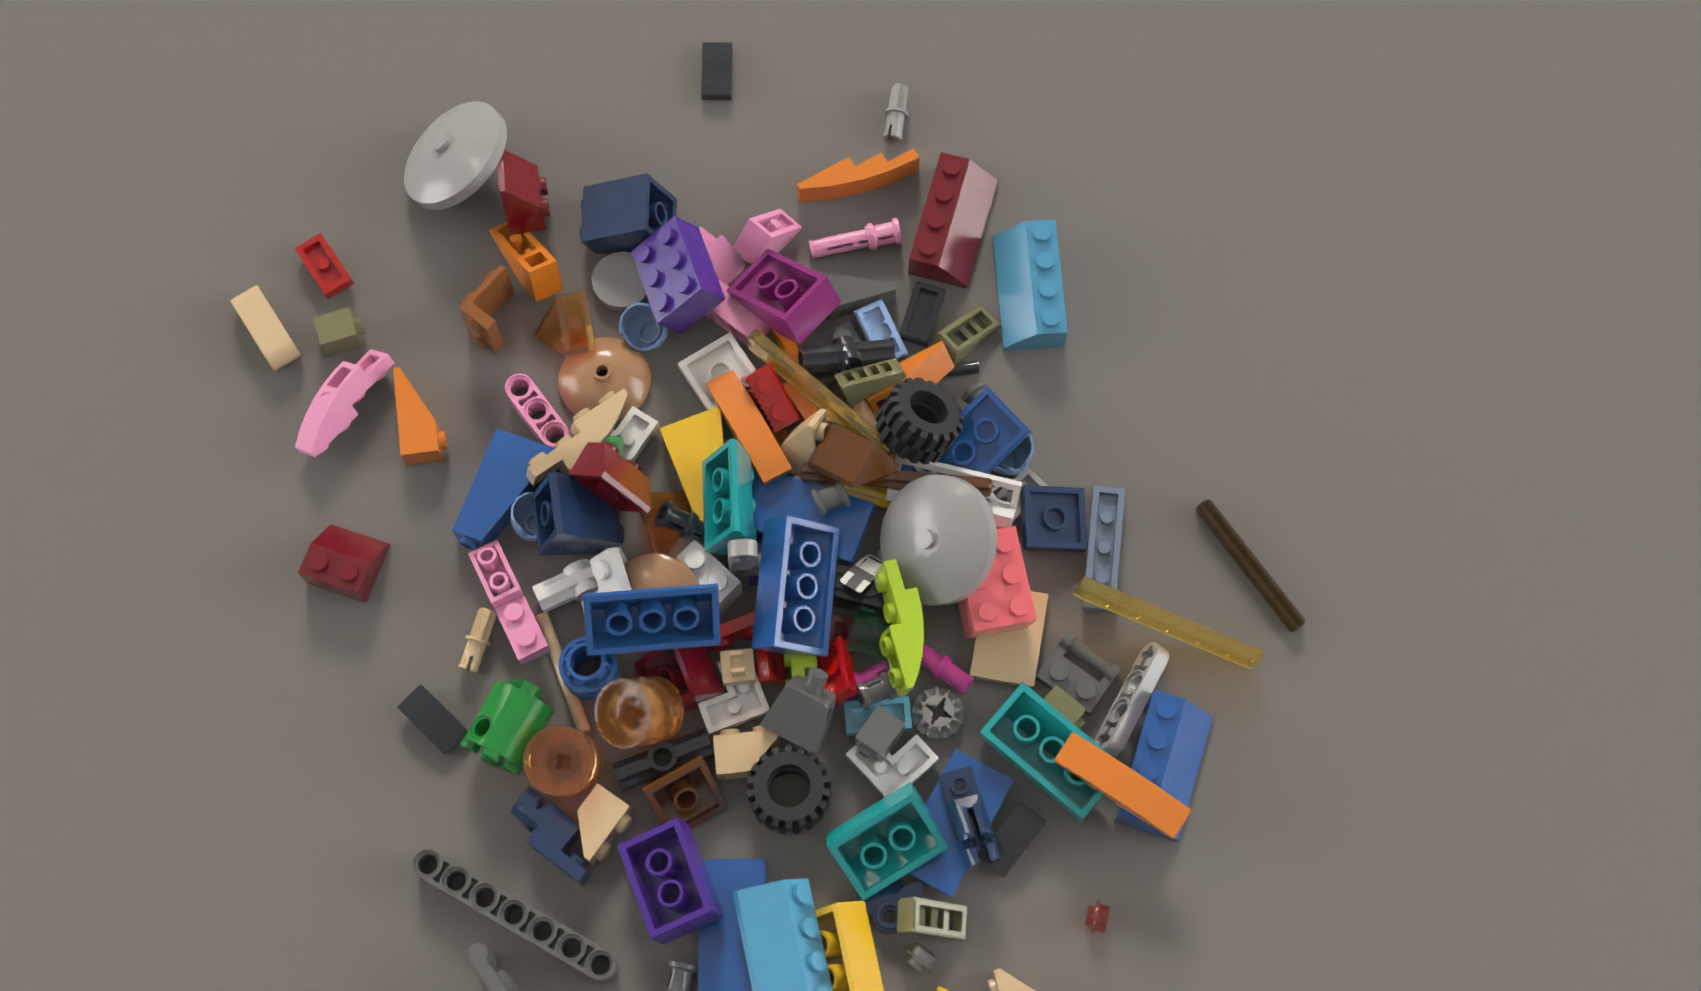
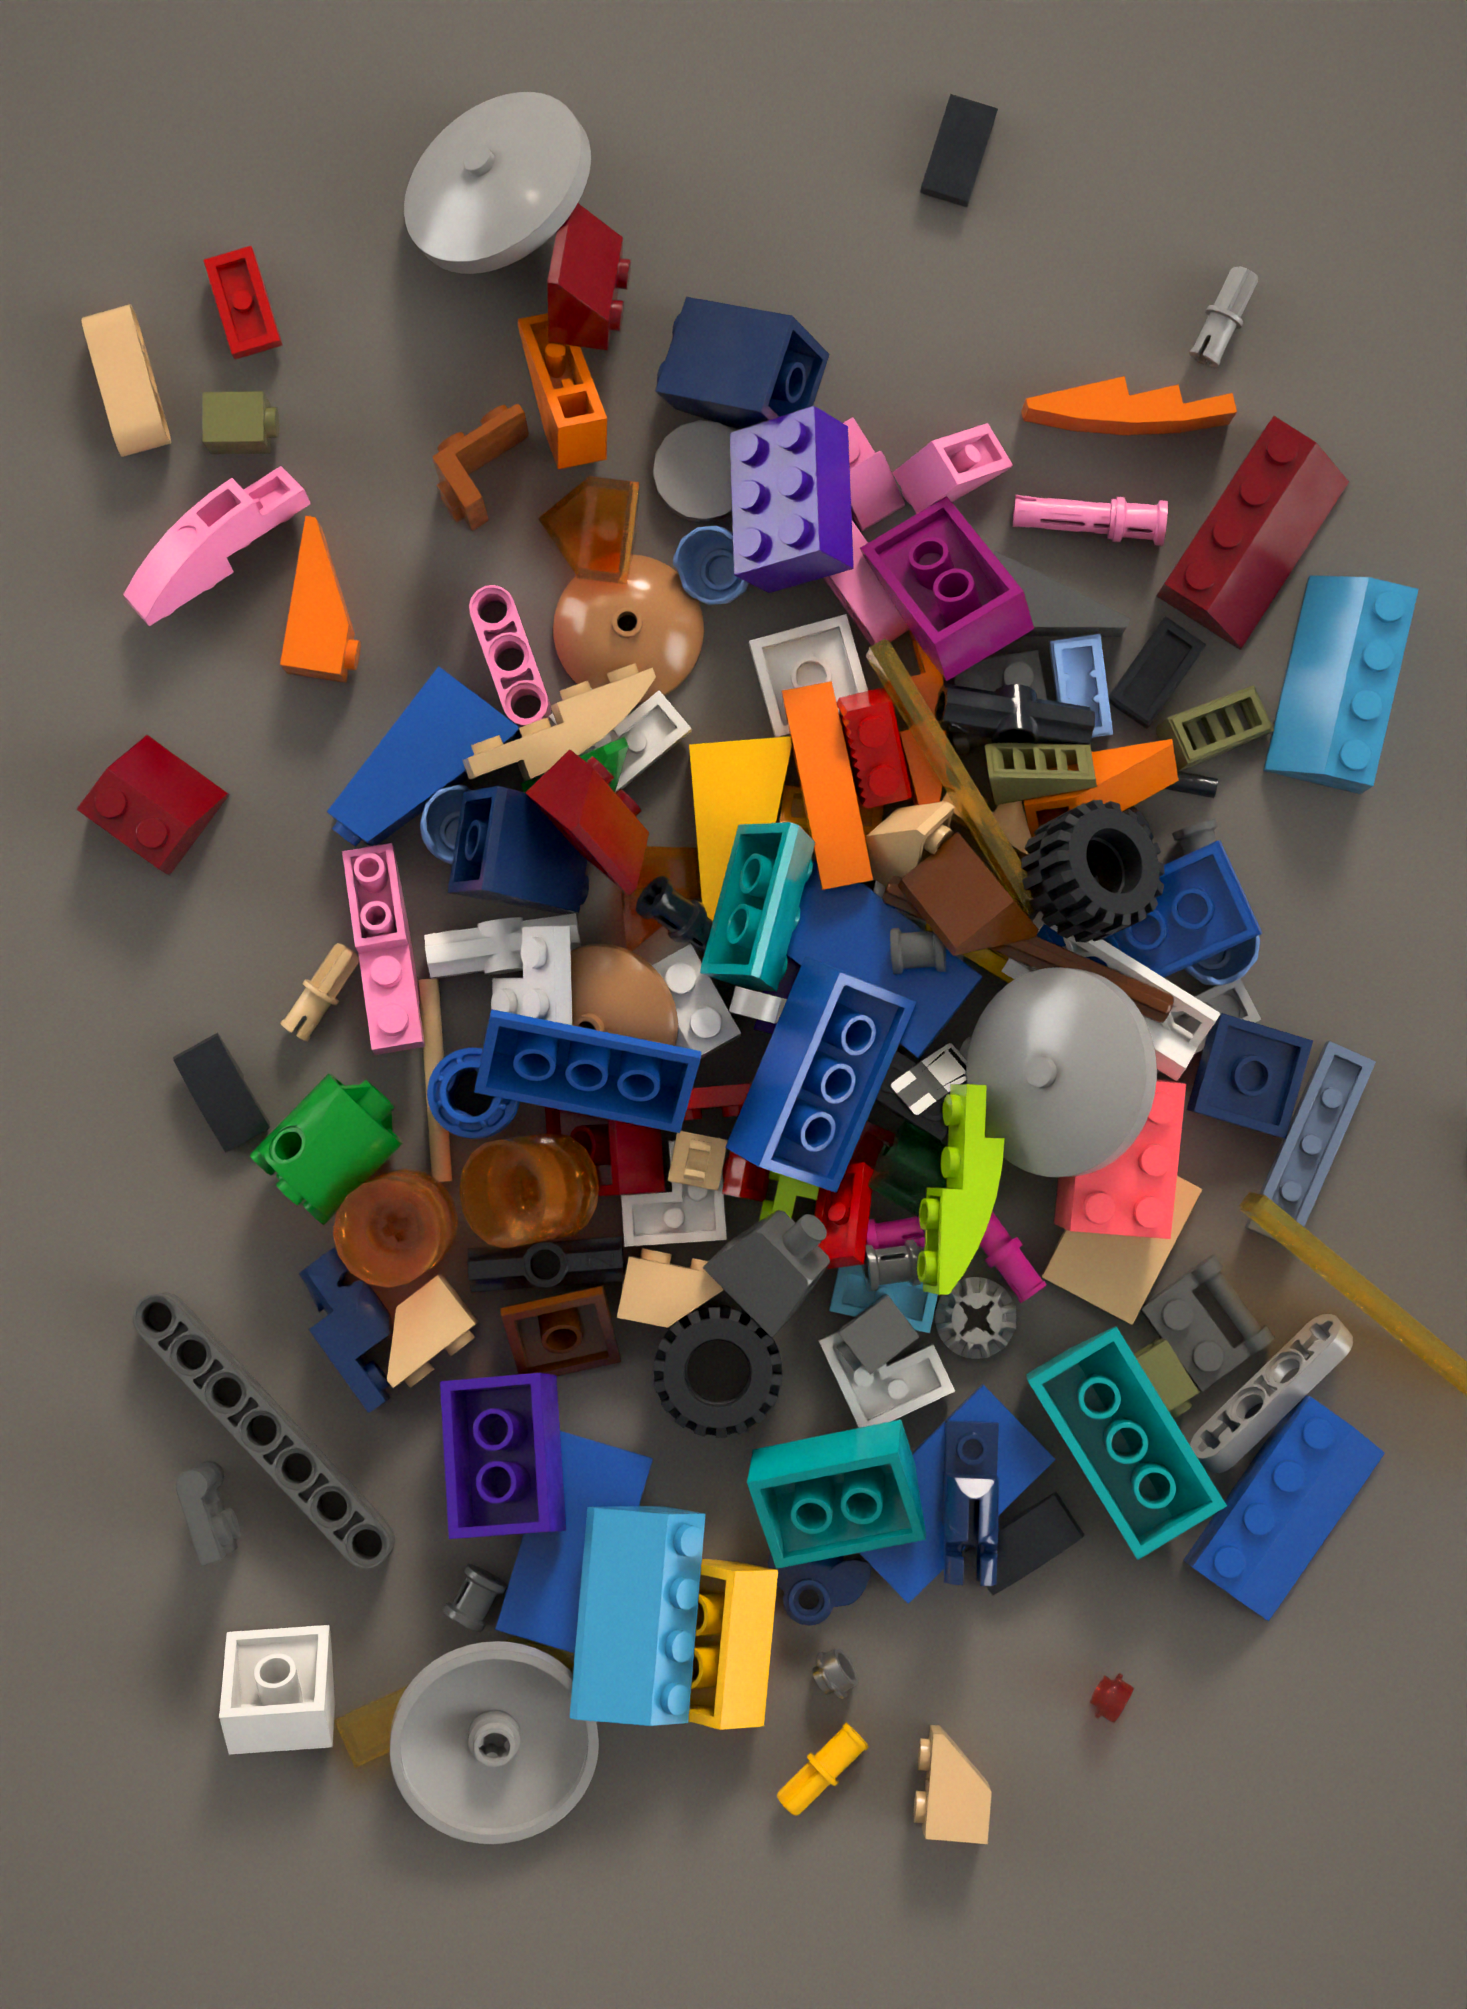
camera: 15 degrees right, 15 degrees up
(912, 915) = (840, 1614): olive slope -> none
(1123, 785) = (1213, 1536): orange slope -> none

